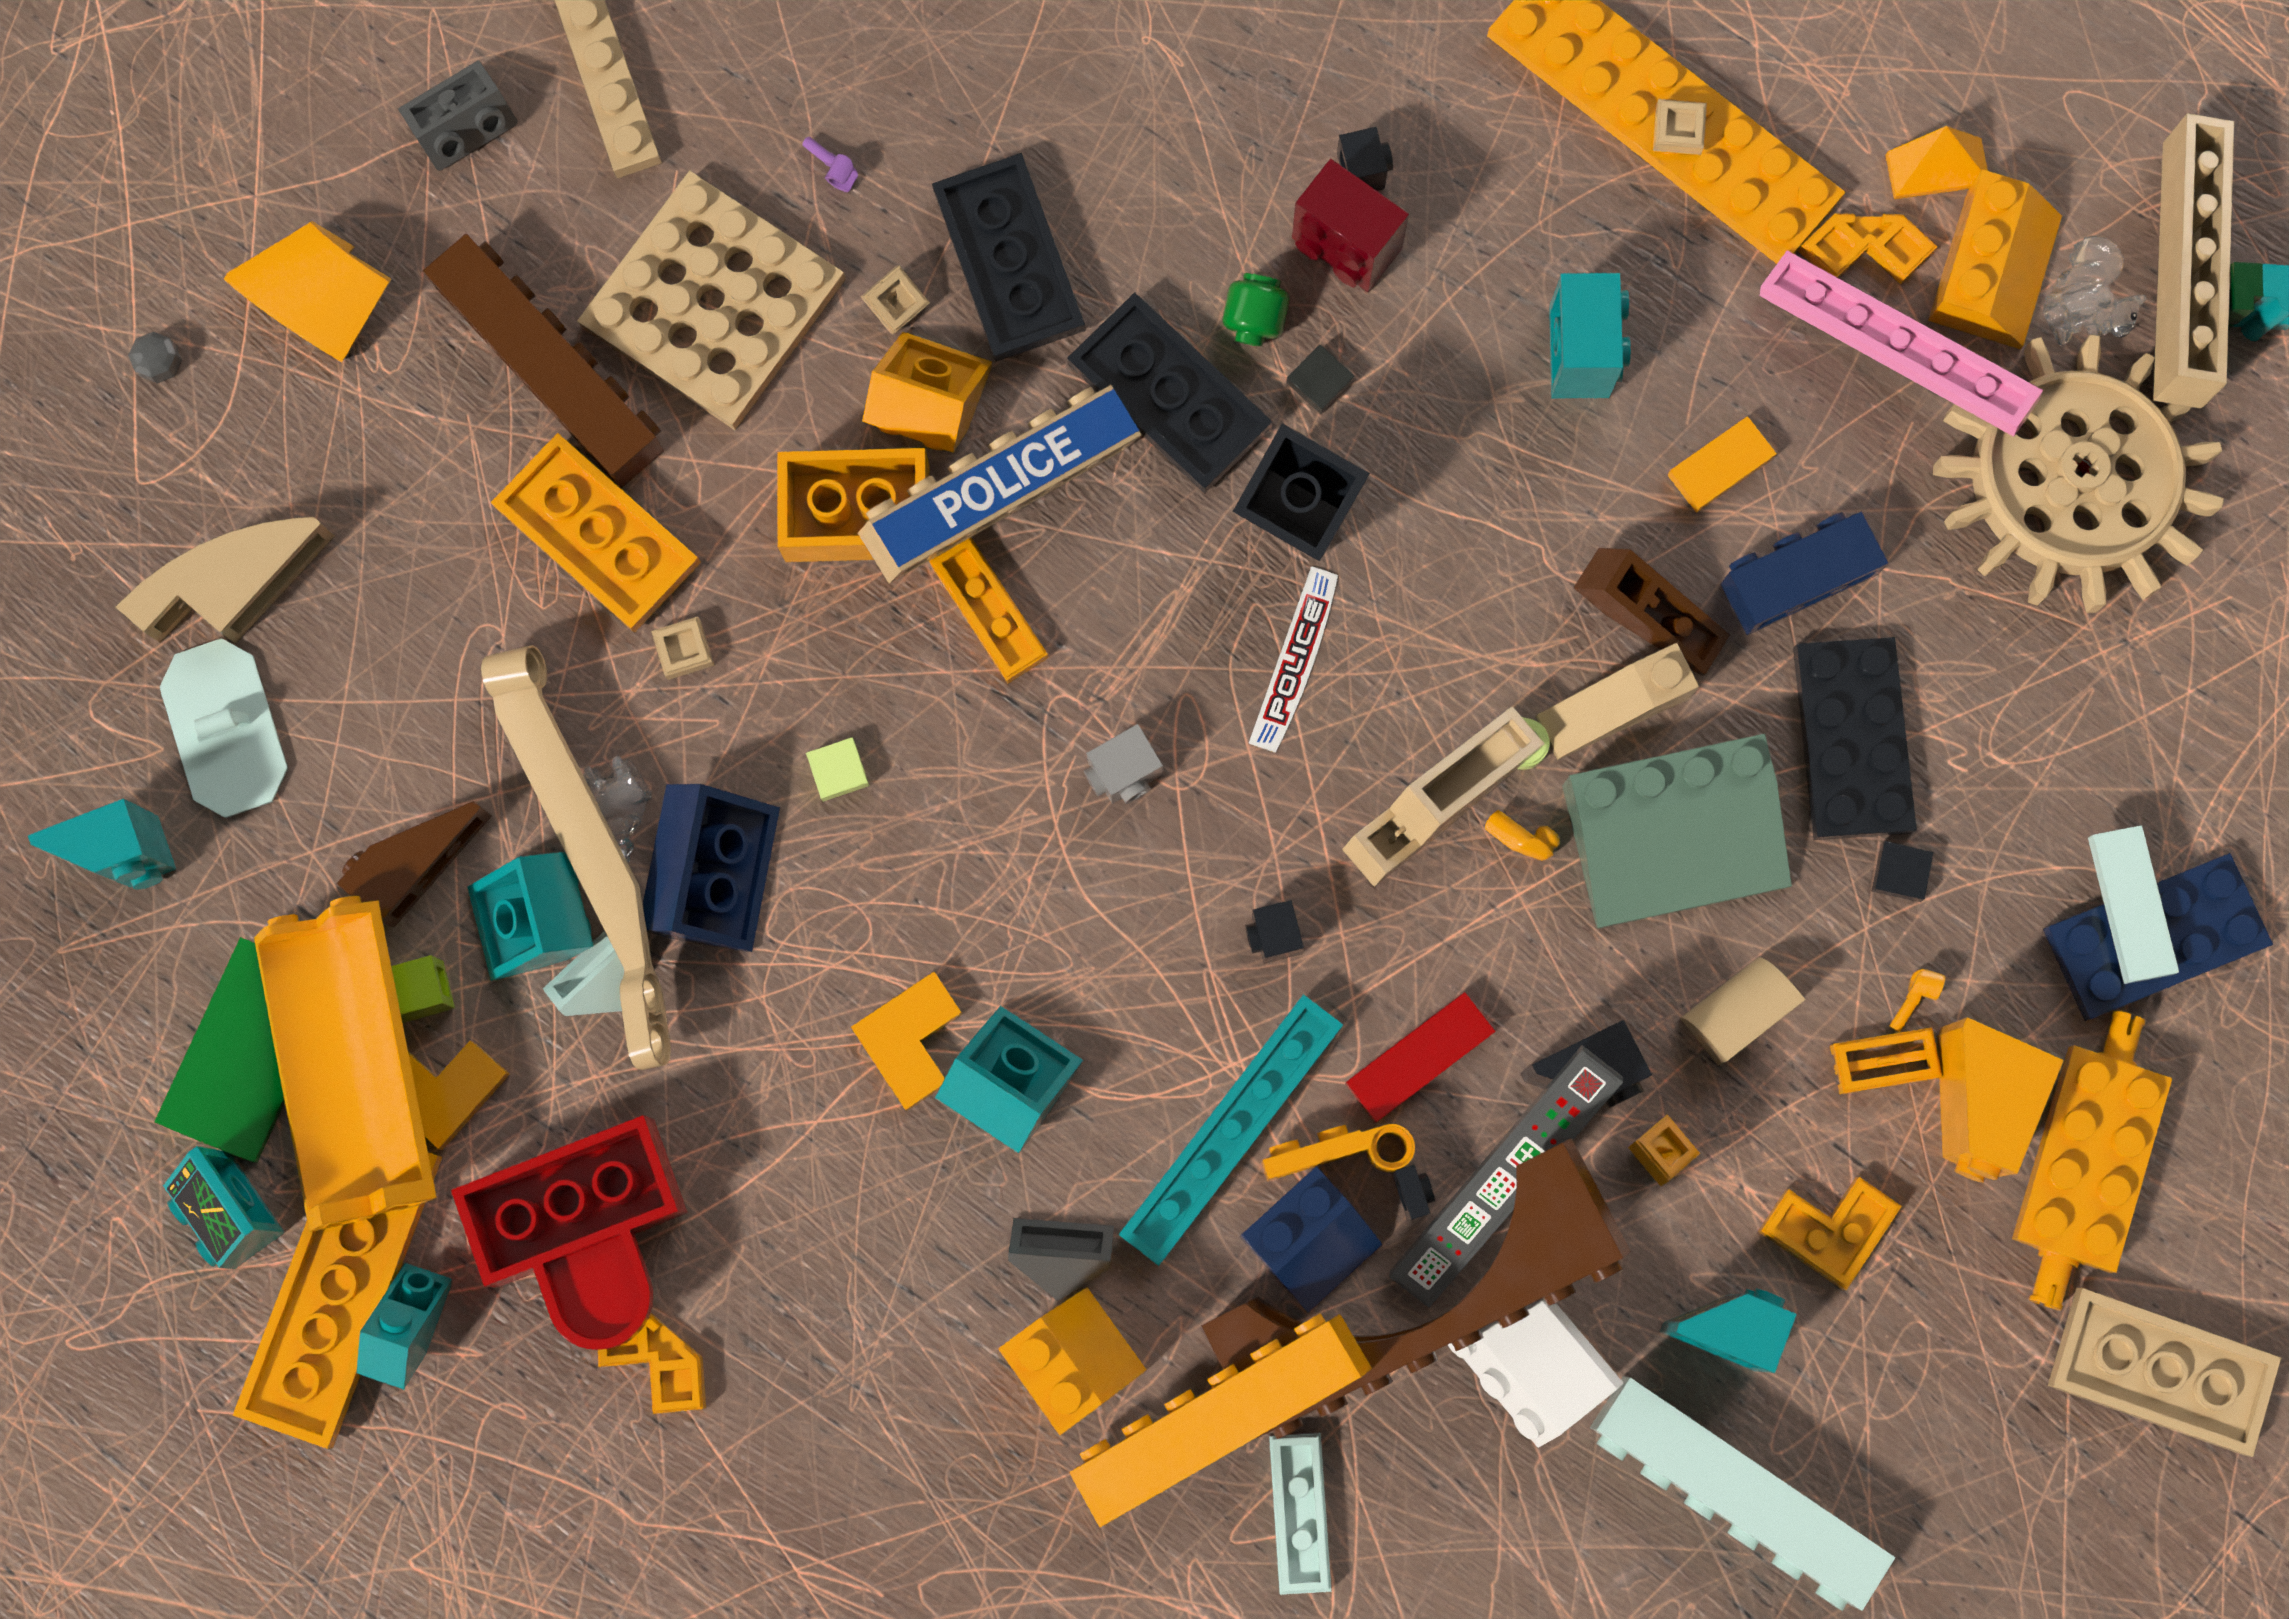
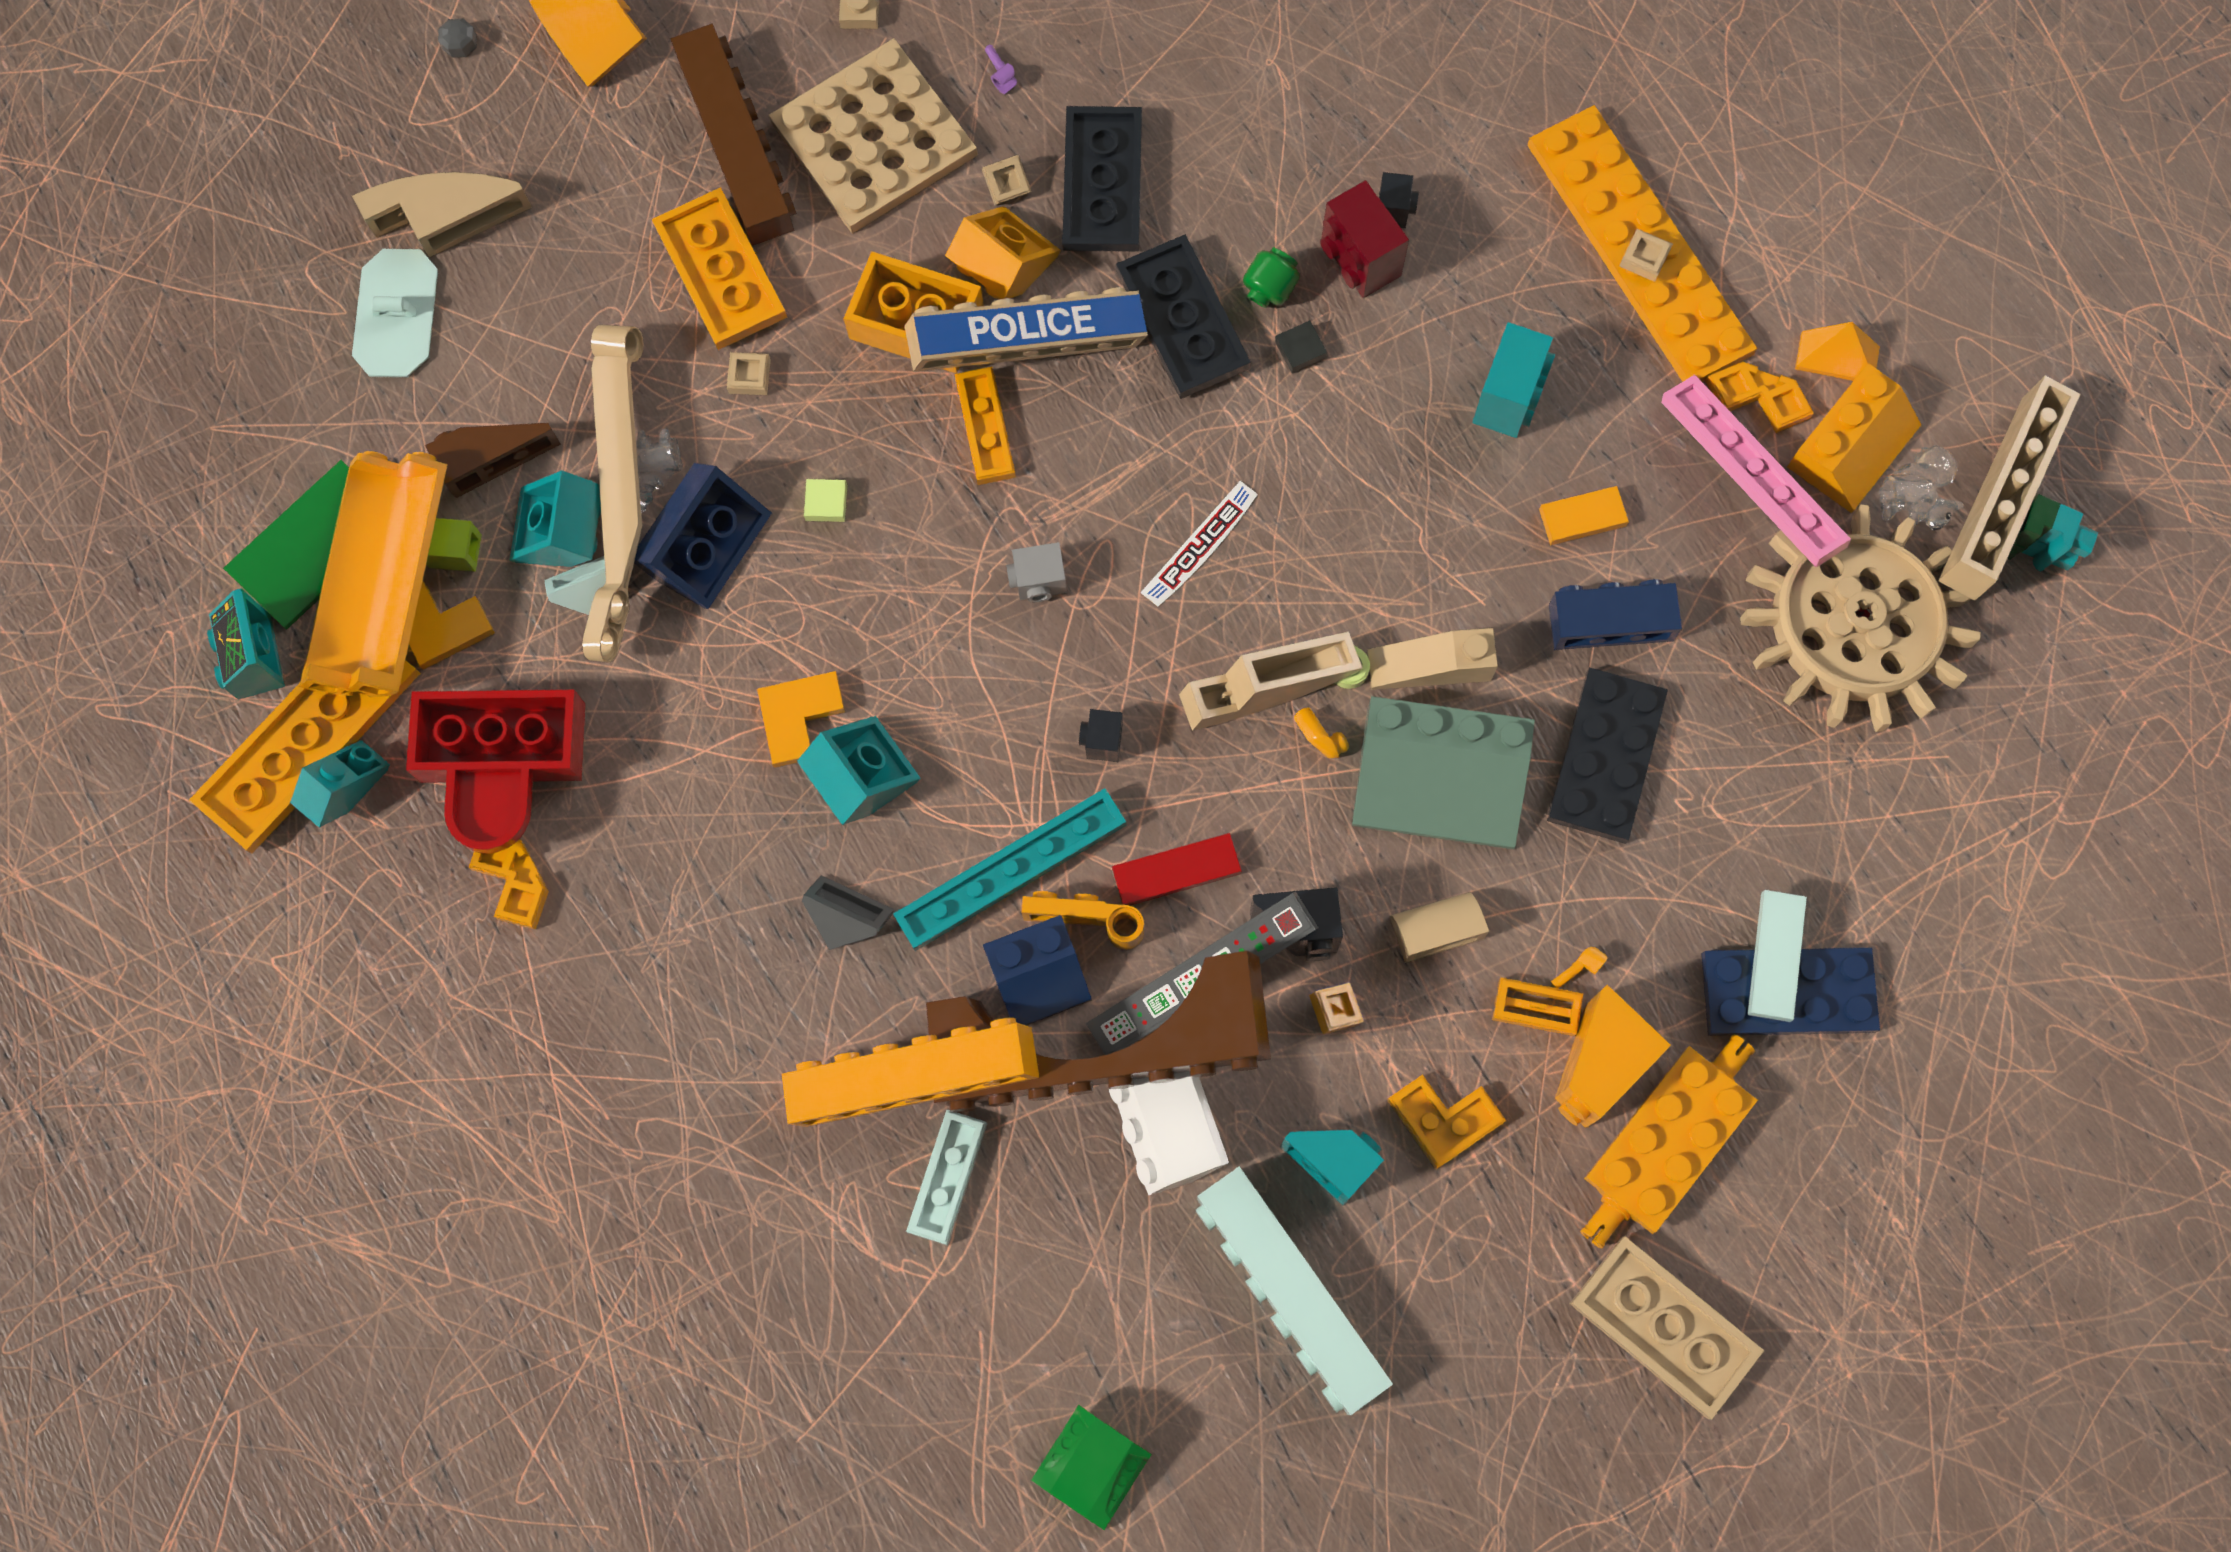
camera: 20 degrees right, 5 degrees down
(113, 842) = (278, 358): teal slope -> none
(1072, 1360) = (816, 991): light orange slope -> none
(1301, 492) = (1247, 413): black slope -> none
(1414, 1192) = (1130, 966): black plate -> none
(1650, 606) = (1486, 599): reddish brown slope -> none
(1902, 871) = (1606, 868): black tile -> none

